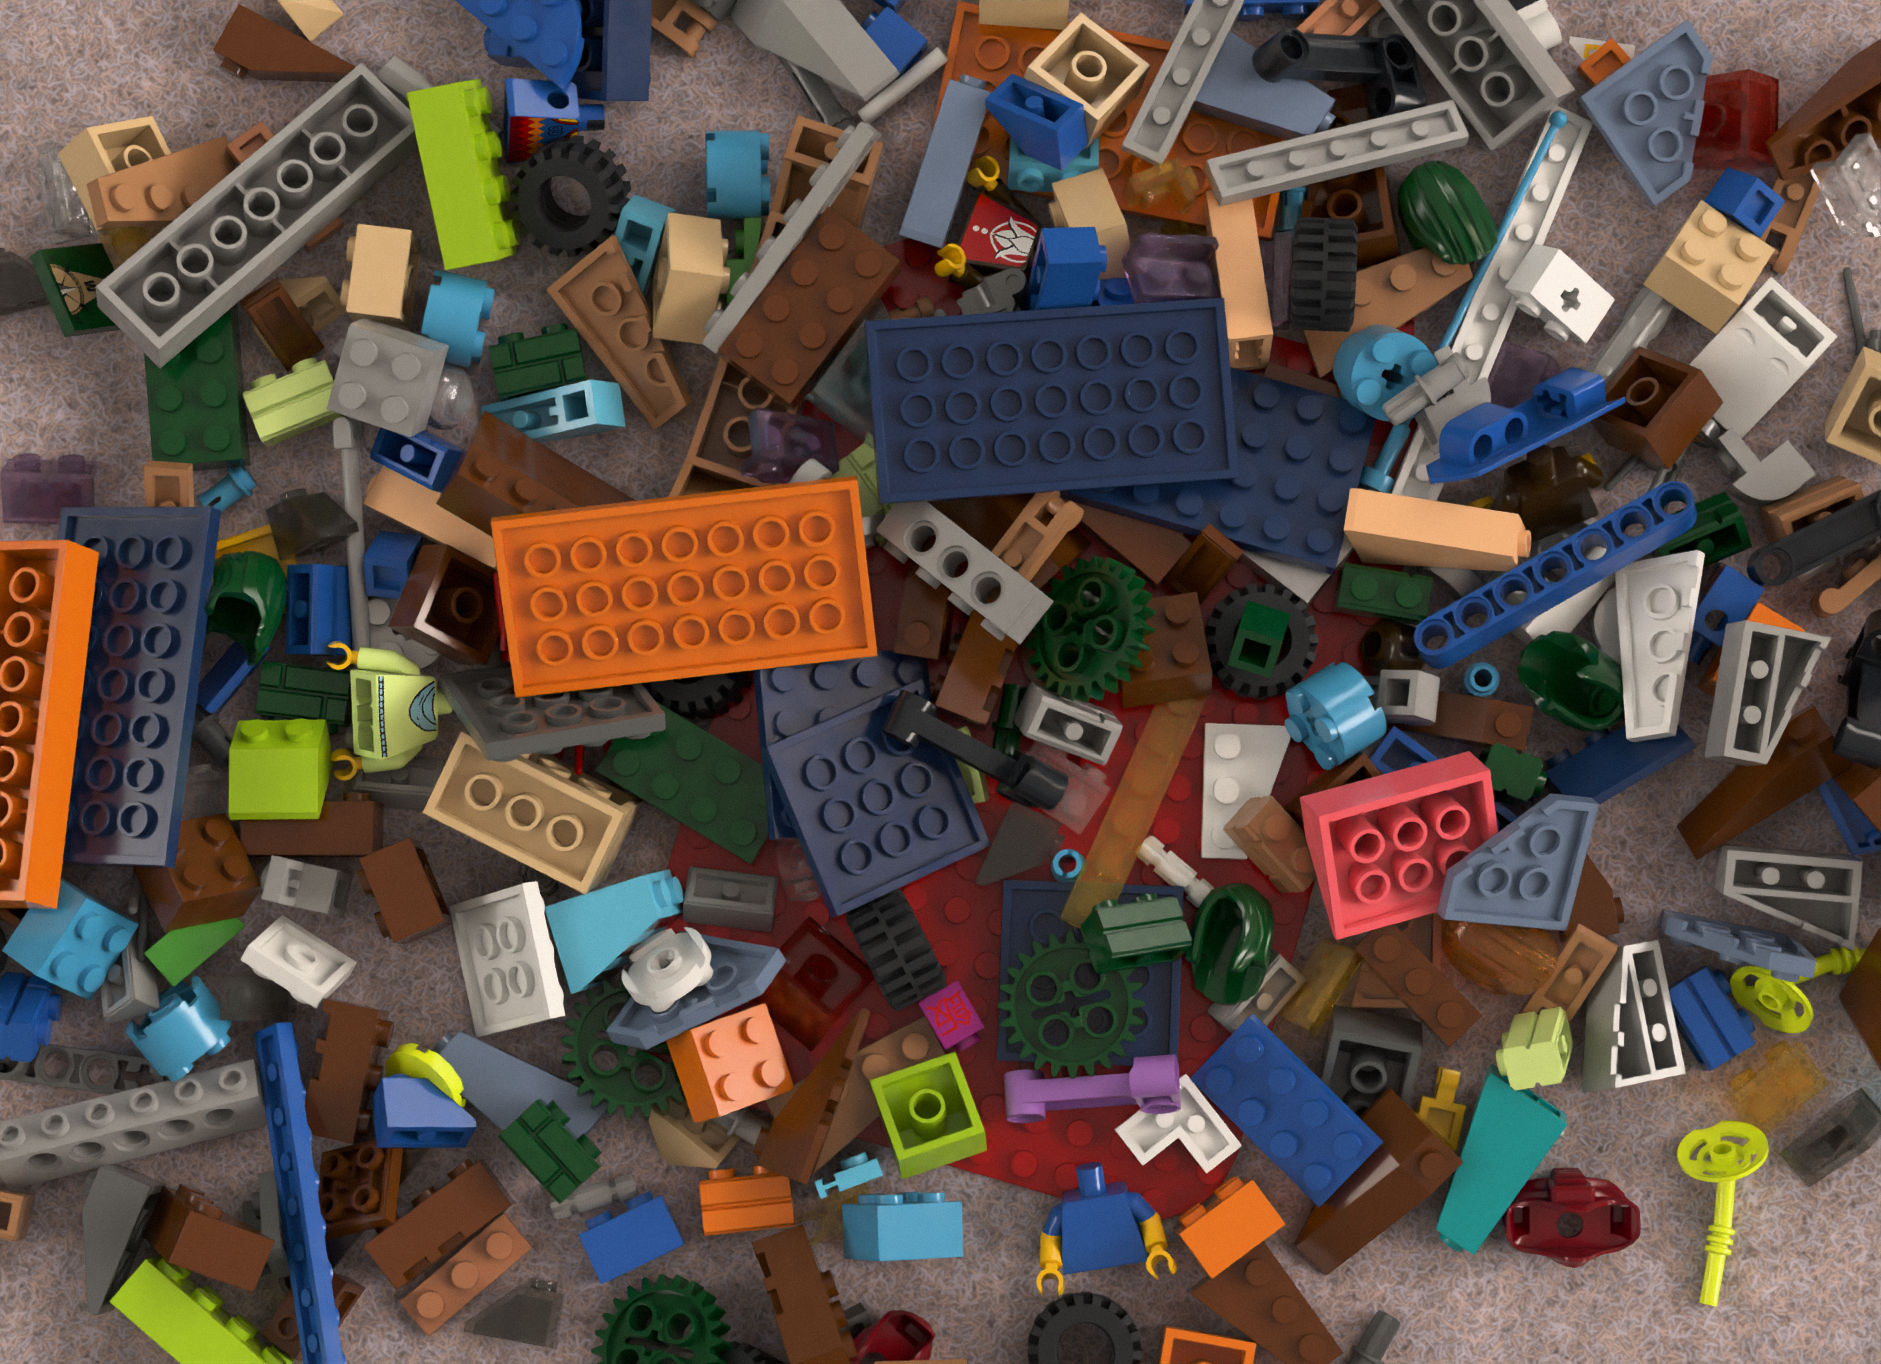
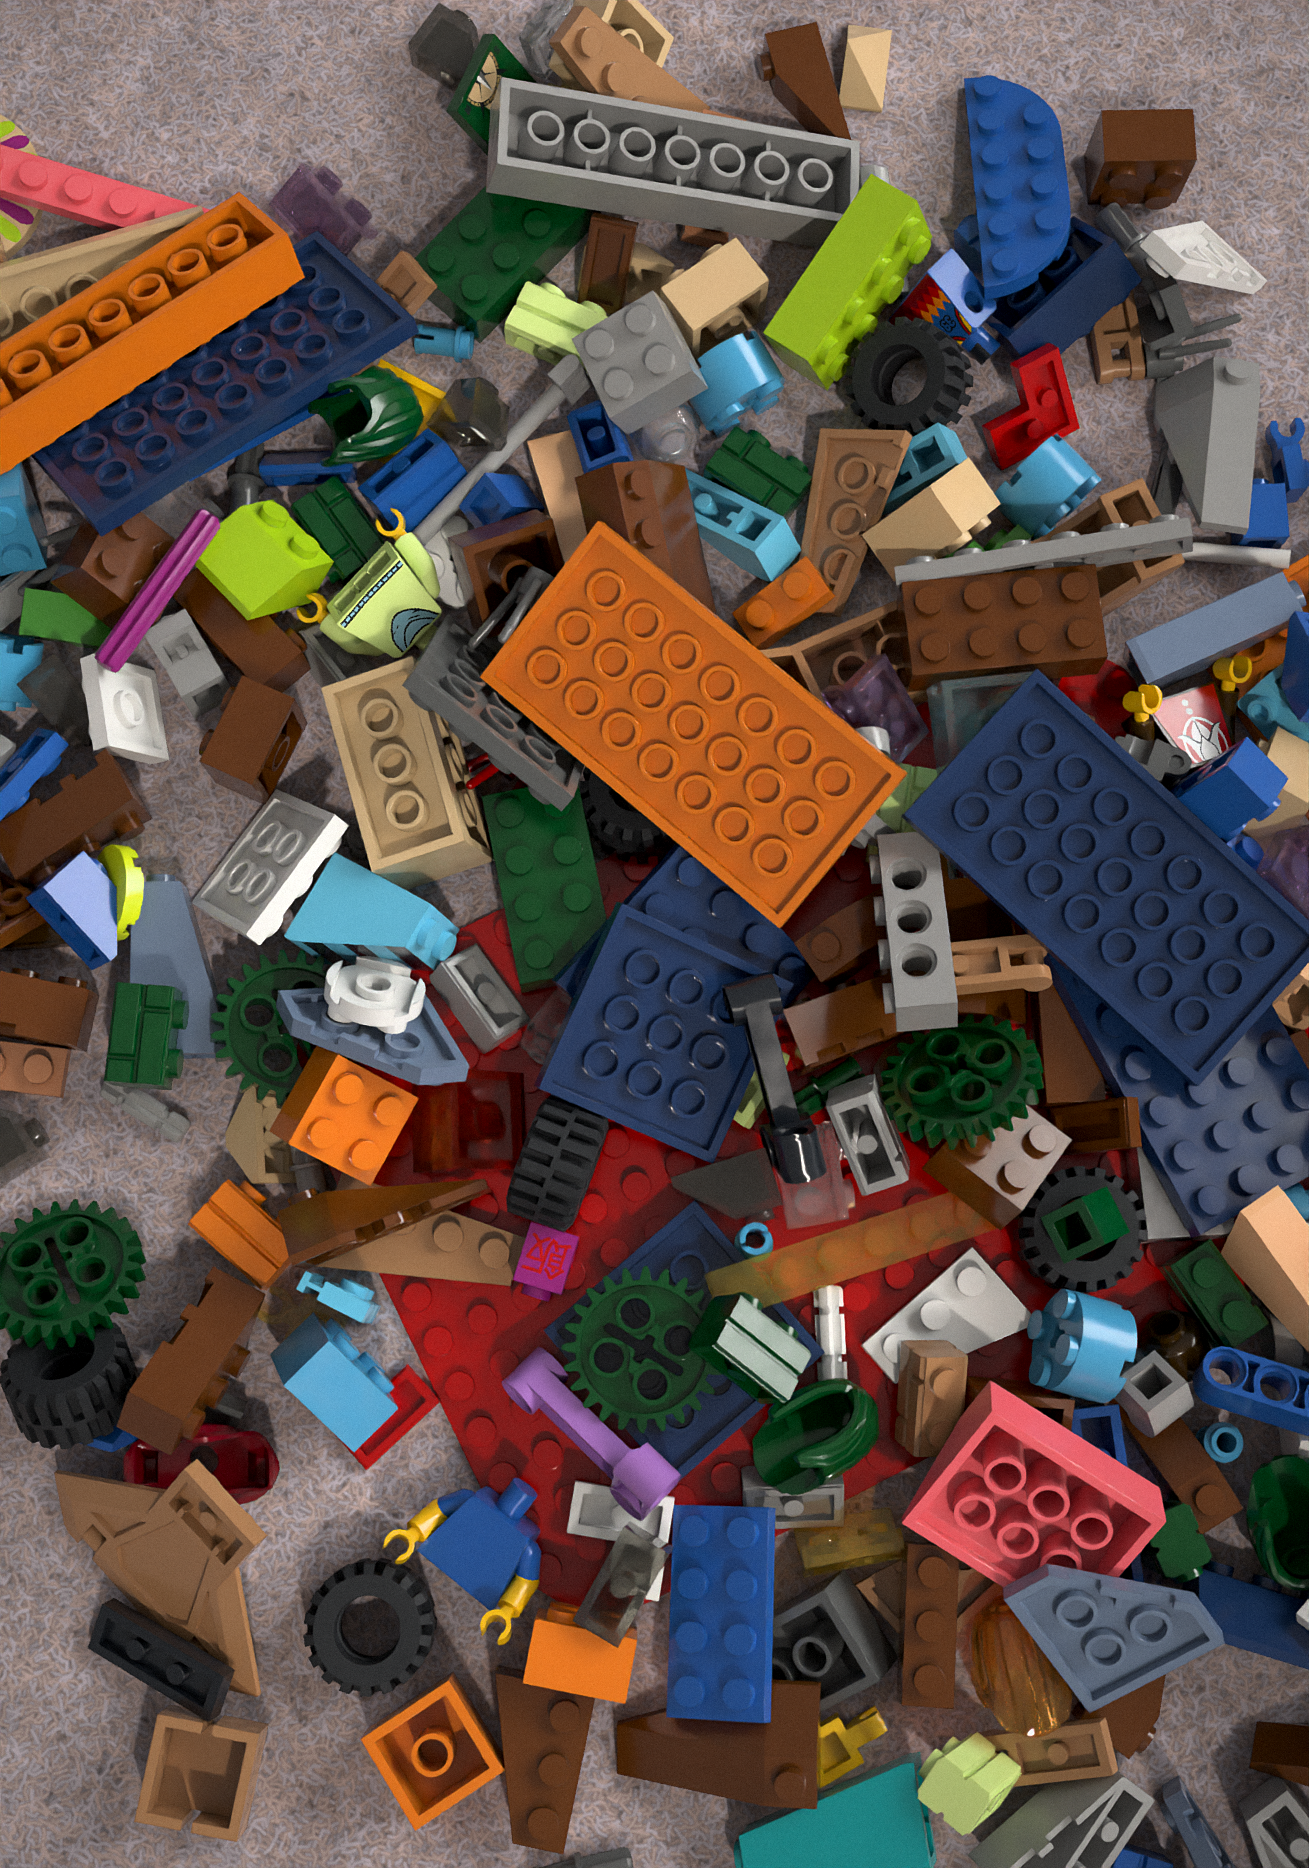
camera: 45 degrees right, 5 degrees down
(242, 862) = (157, 591): none -> magenta axle
(487, 604) = (525, 595): none -> dark grey plant
(631, 1238) = (136, 1168): blue brick -> none
(647, 433) = (783, 604): none -> orange plate
(679, 122) = (1043, 410): none -> red plate
(928, 1115) = (447, 1315): lime slope -> none
(962, 1188) = (413, 1402): none -> red tile
(1209, 1156) = (623, 1584): none -> clear smoke slope

